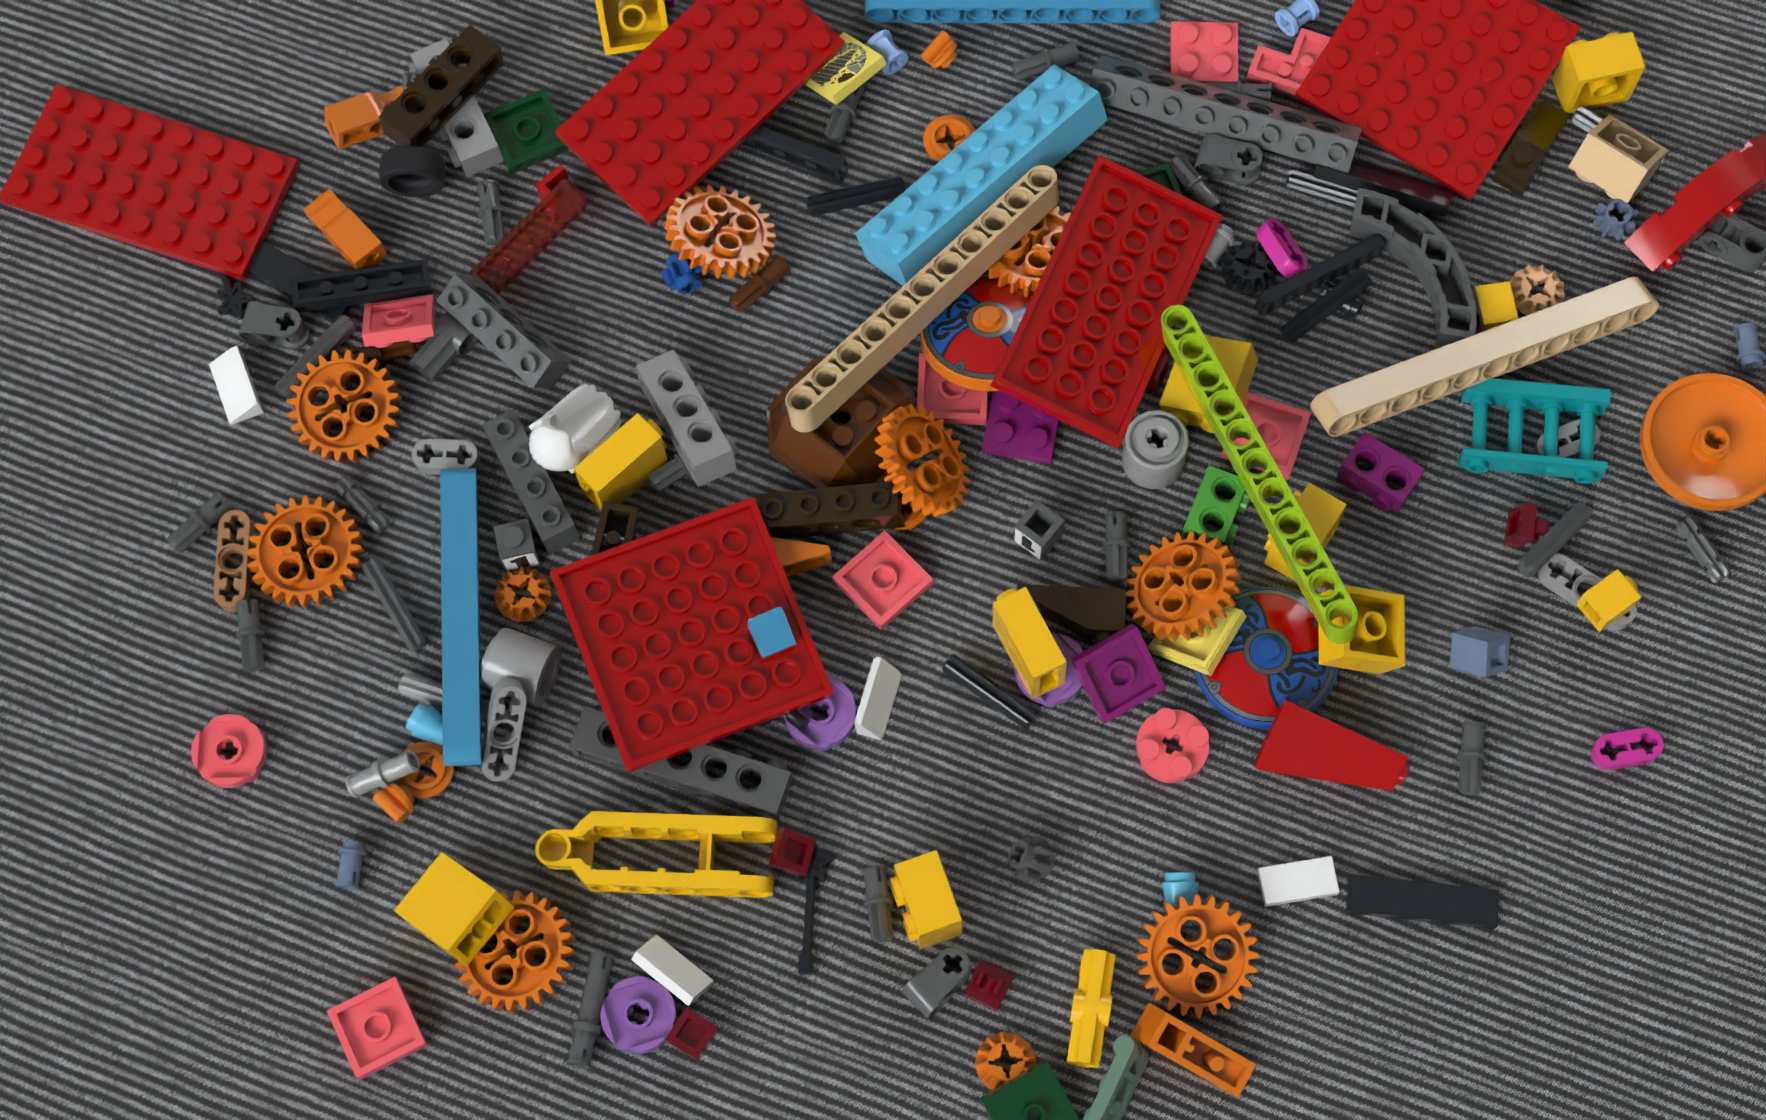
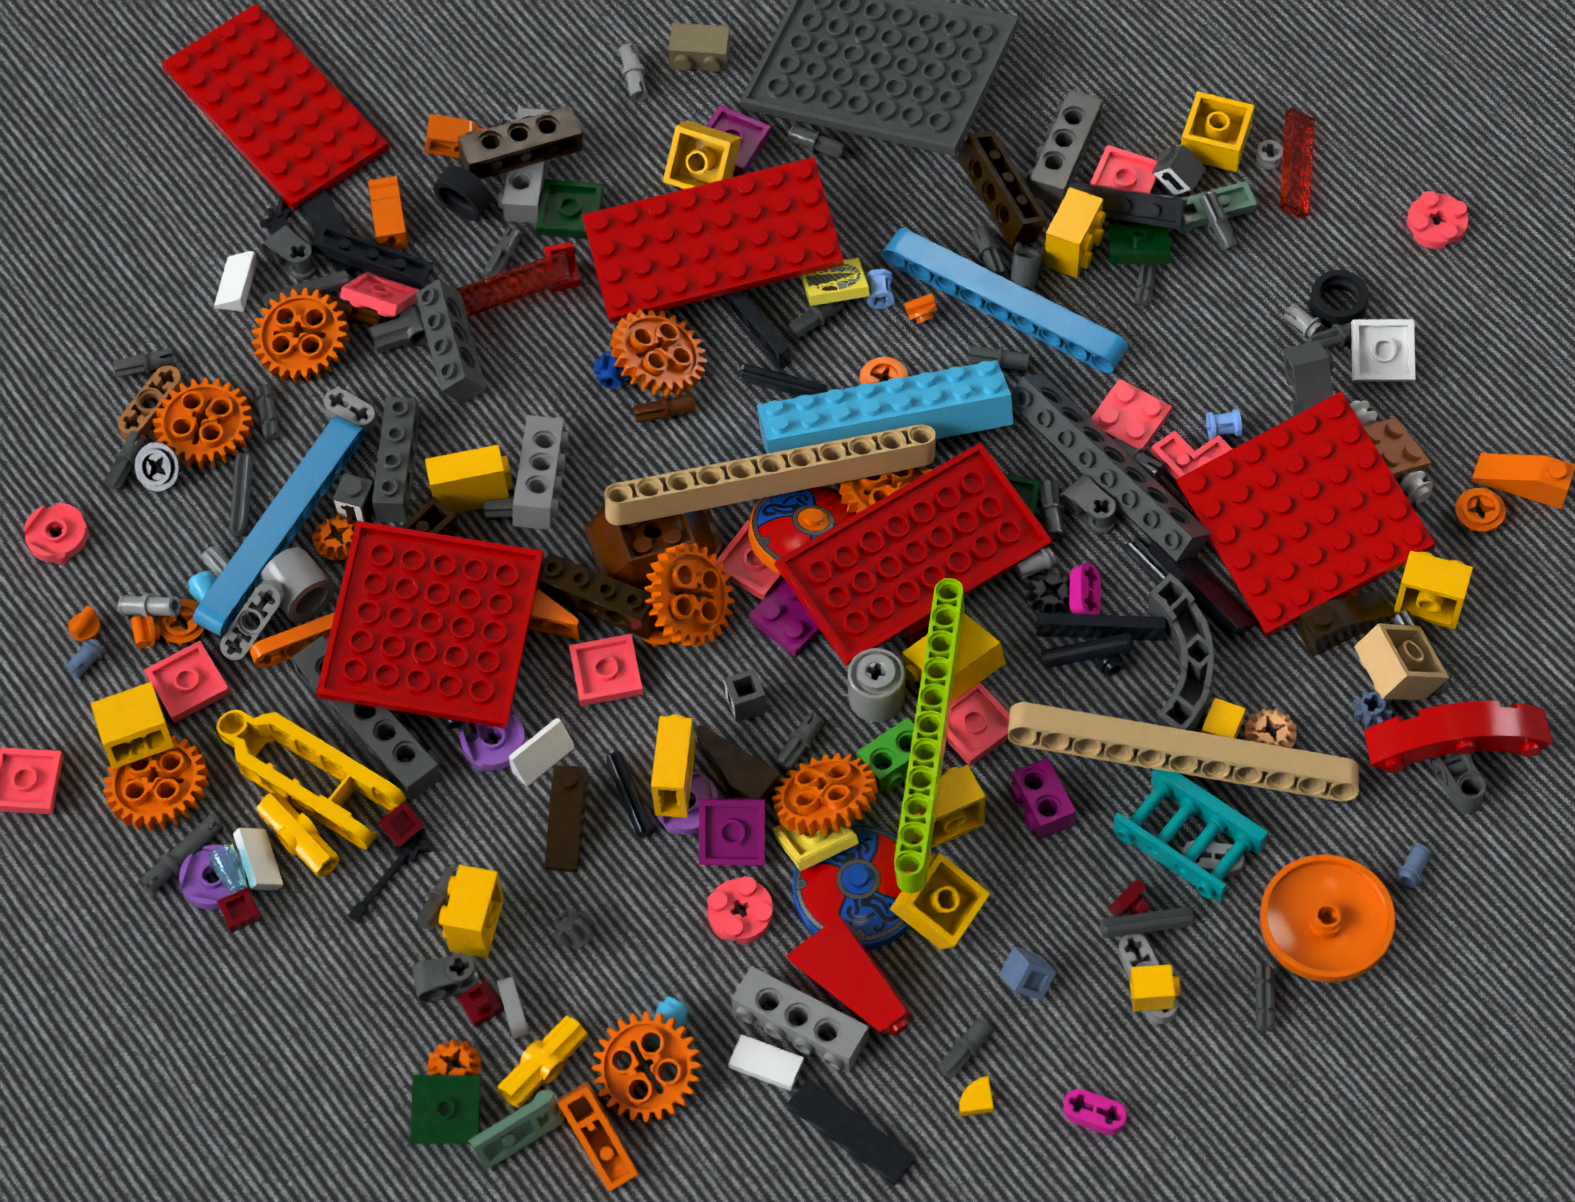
camera: 30 degrees right, 10 degrees down
(278, 632) = (146, 469): none -> gear
(326, 831) = (84, 625): none -> orange plate
(473, 829) = (187, 681): none -> coral plate
(557, 723) = (290, 642): none -> orange beam
(573, 429) = (448, 433): white hair -> none
(656, 999) = (228, 867): none -> clear light blue cone
(694, 921) = (298, 834): none -> yellow piece
(771, 632) = (487, 652): dark azure slope -> none
(947, 751) = (566, 817): none -> dark brown slope
(1025, 971) = (512, 1007): none -> light grey beam
(1359, 808) = (791, 1003): none -> light grey brick
(1513, 799) = (976, 1098): none -> yellow tile

